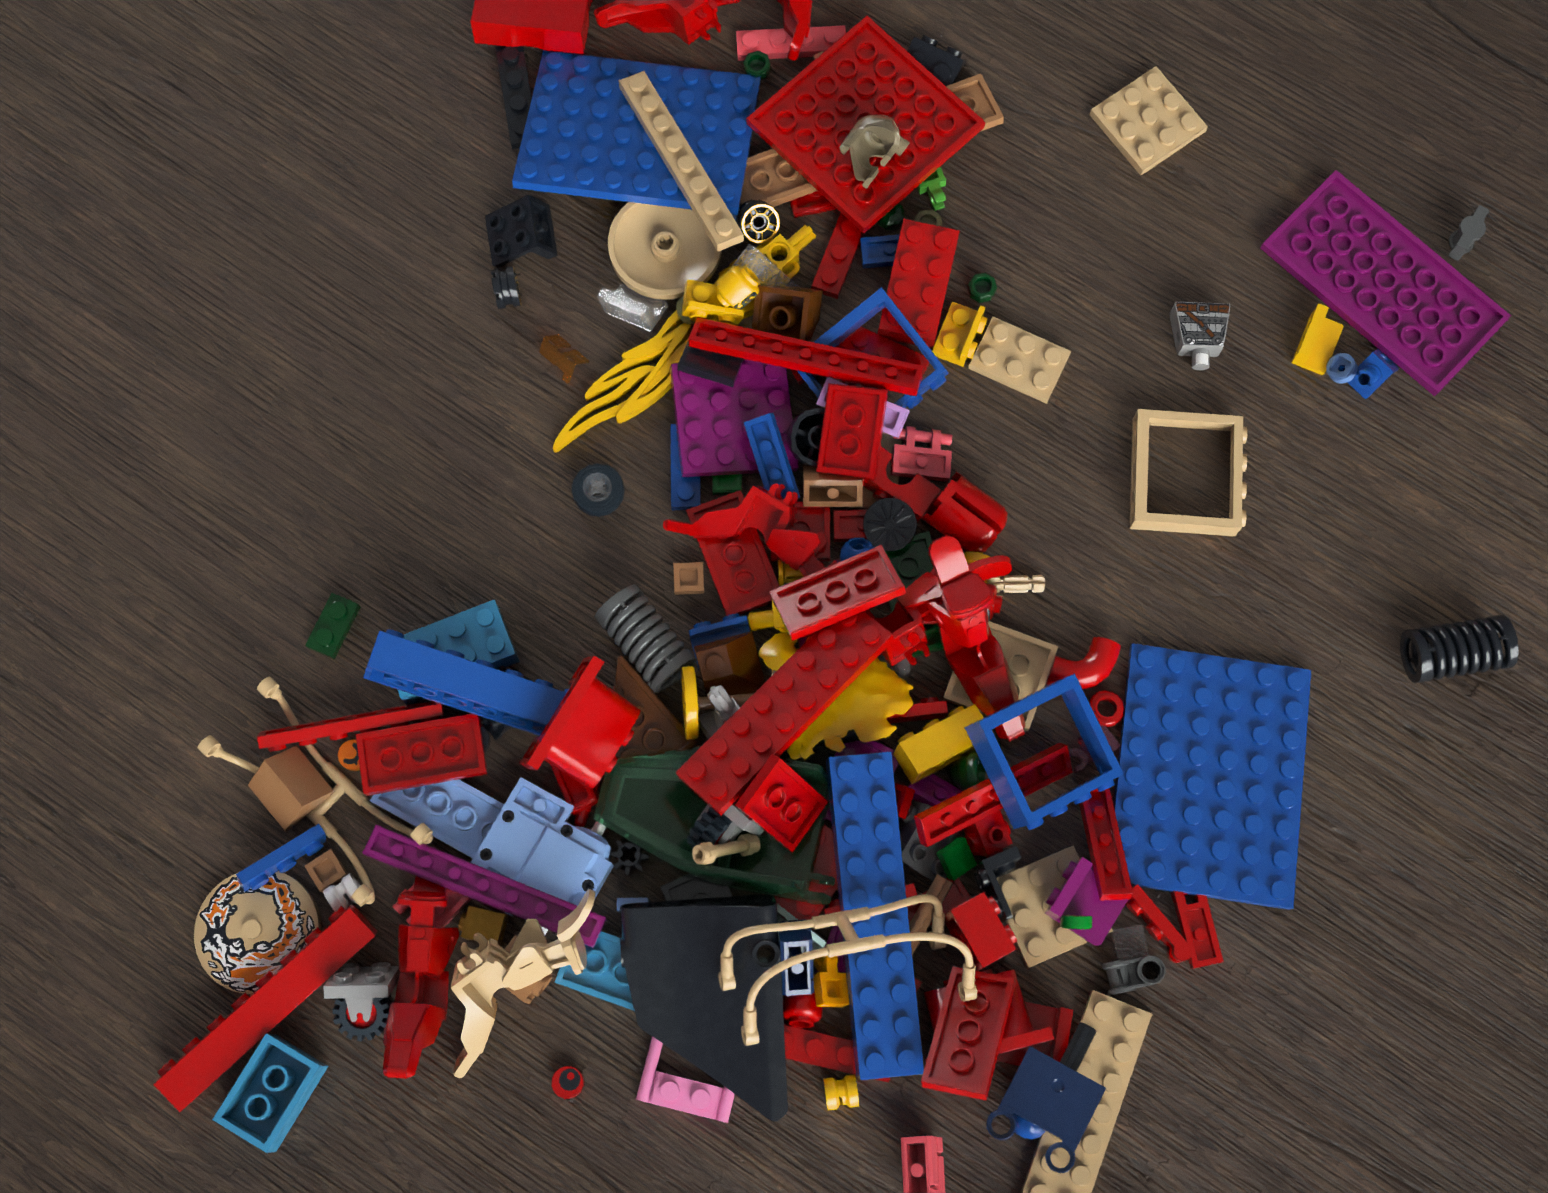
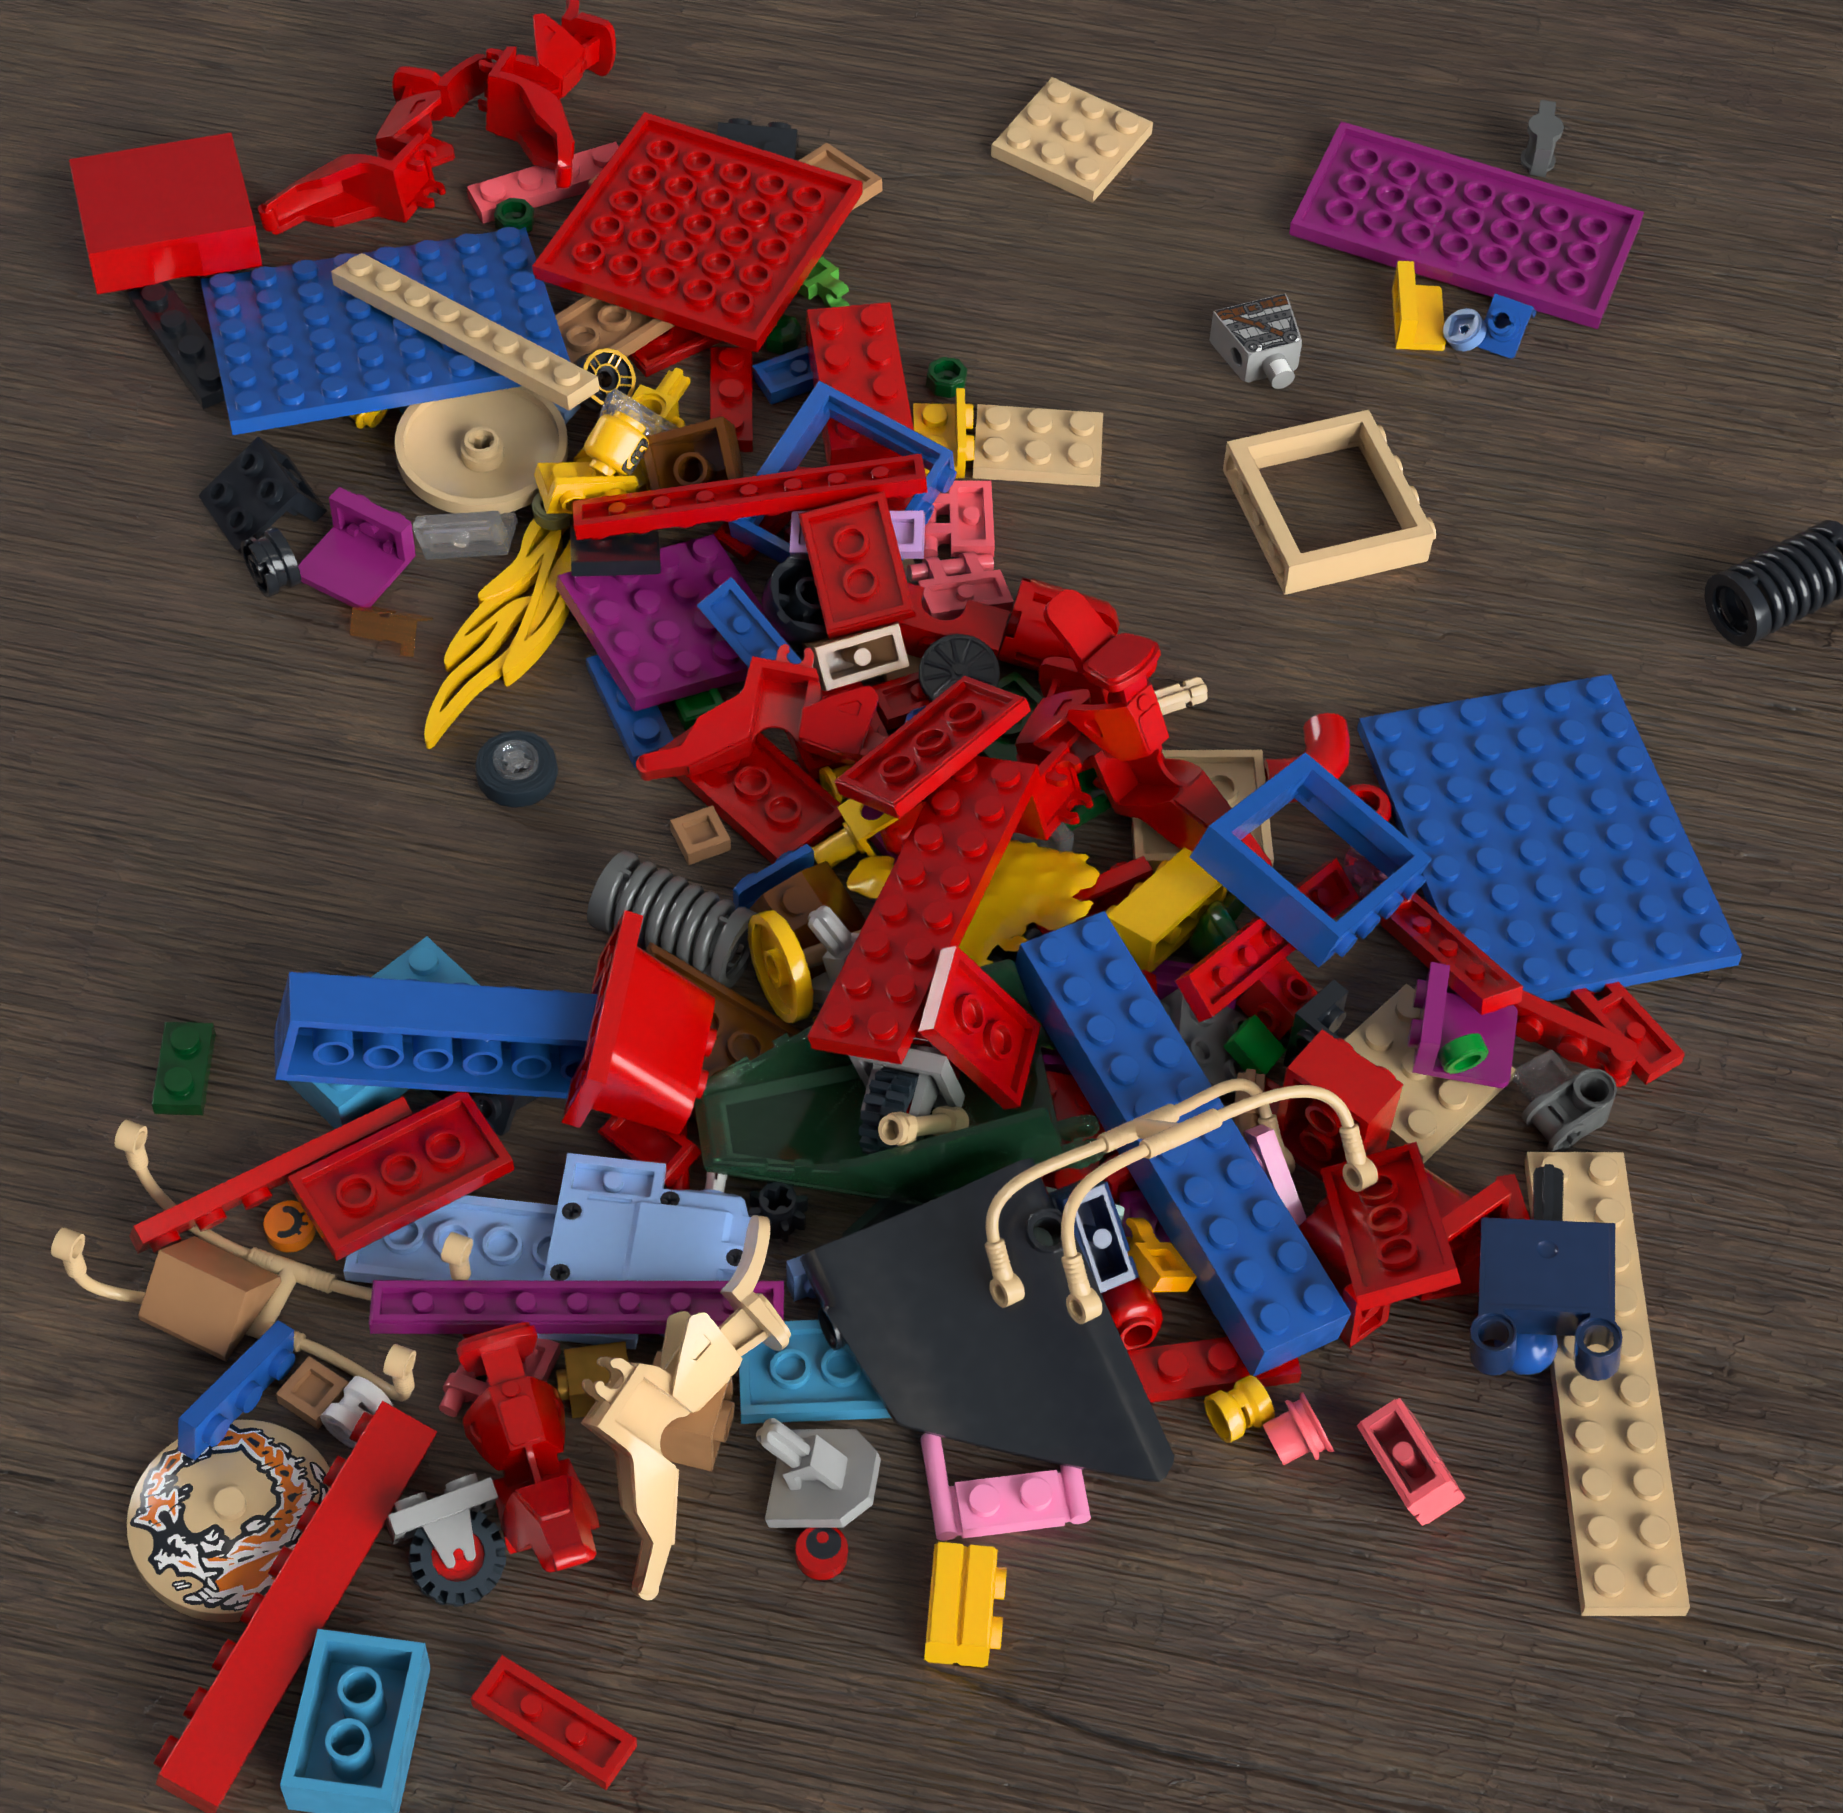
camera: 25 degrees left, 20 degrees down
(379, 1128) = (554, 1722): none -> red plate
(561, 298) = (360, 551): none -> magenta bracket
(582, 1038) = (818, 1476): none -> light grey piece
(629, 1151) = (961, 1605): none -> yellow brick
(868, 1122) = (1297, 1432): none -> coral piece
(872, 138) = (729, 227): dark tan piece -> none
(926, 963) = (1268, 1152): none -> bright pink plate
(949, 406) = (969, 523): none -> coral plate

